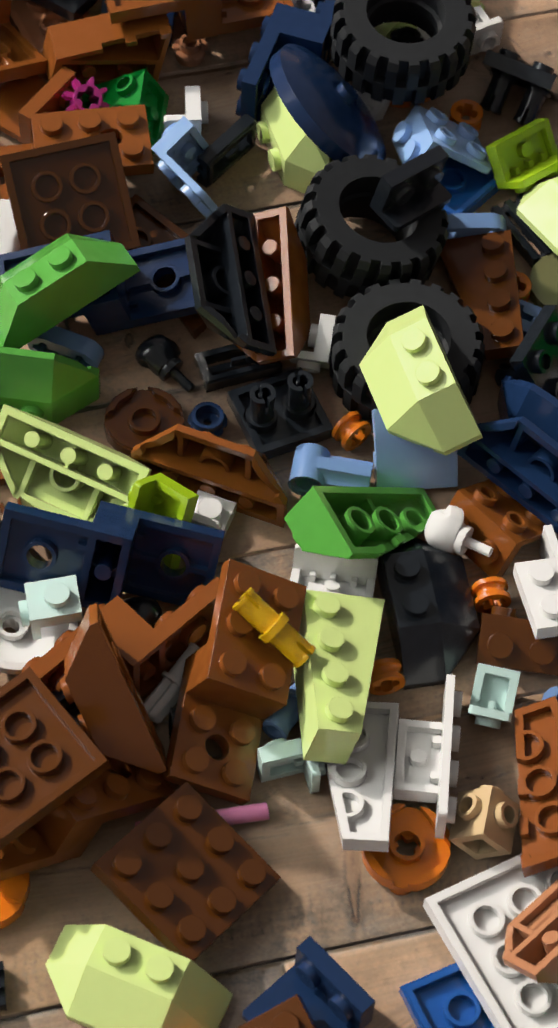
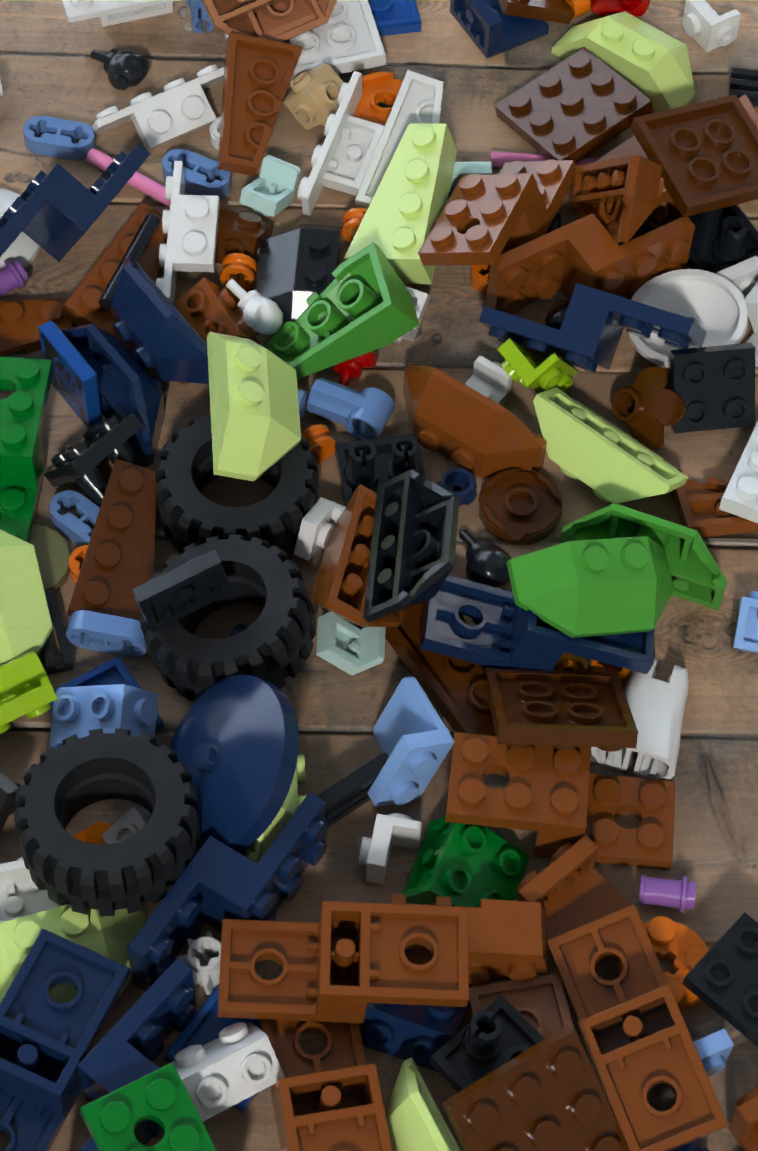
camera: 165 degrees left, 0 degrees up
(50, 604) = (655, 286): light aqua bracket -> none
(95, 95) = (513, 851): dark pink gear -> none
(274, 628) = (464, 195): yellow pin -> none

